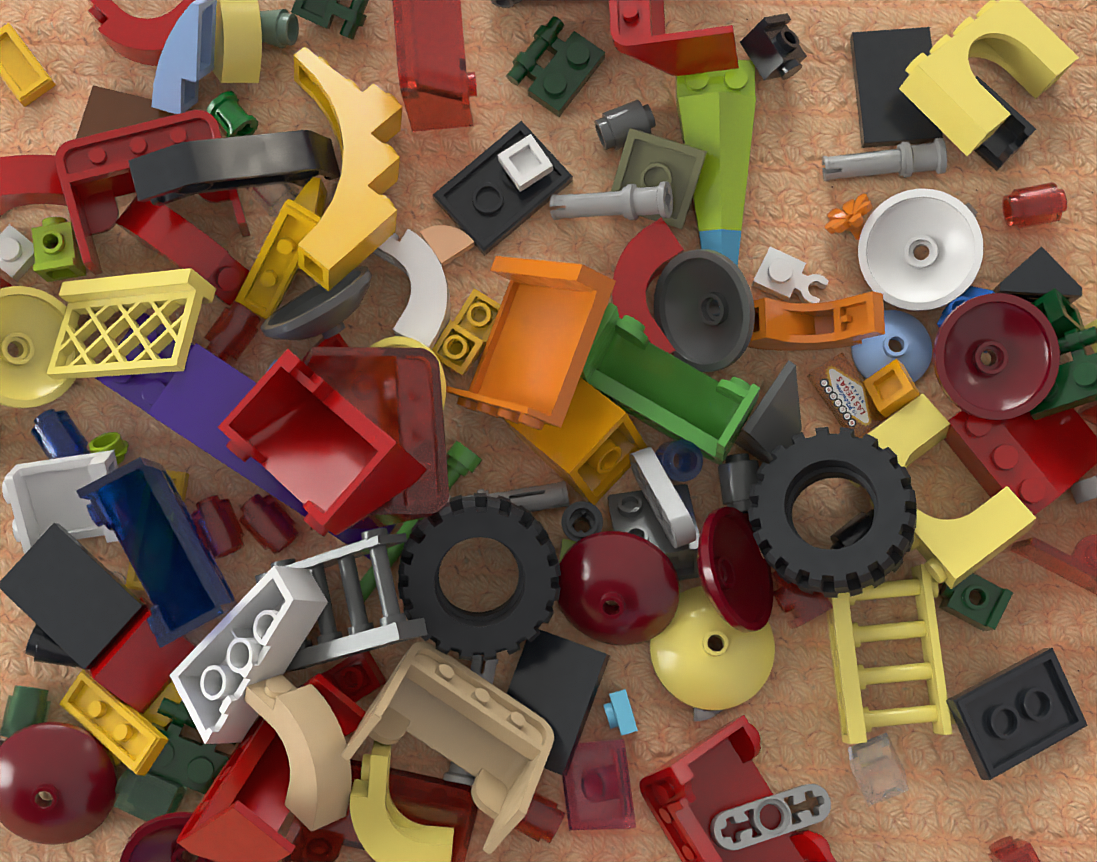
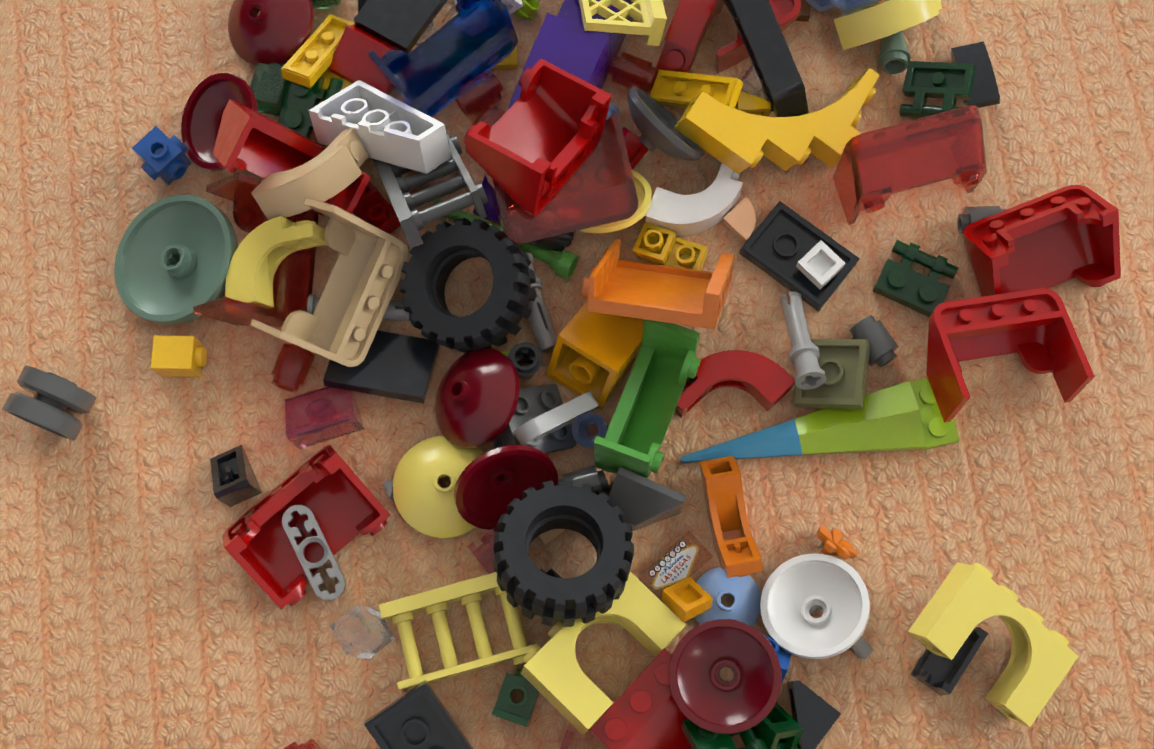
camera: 80 degrees right, 5 degrees down
(232, 116) = (810, 37): green bush -> none
(620, 713) = (380, 420): medium azure plate -> none
(690, 313) = (721, 427): dark grey dish -> none
(774, 48) = (973, 454): black brick -> none
(783, 274) = (771, 497): white plate -> none
(879, 71) = (989, 547): black tile -> none
(902, 160) = (897, 584): light grey pin -> none
(1034, 205) = (881, 708): clear red brick -> none

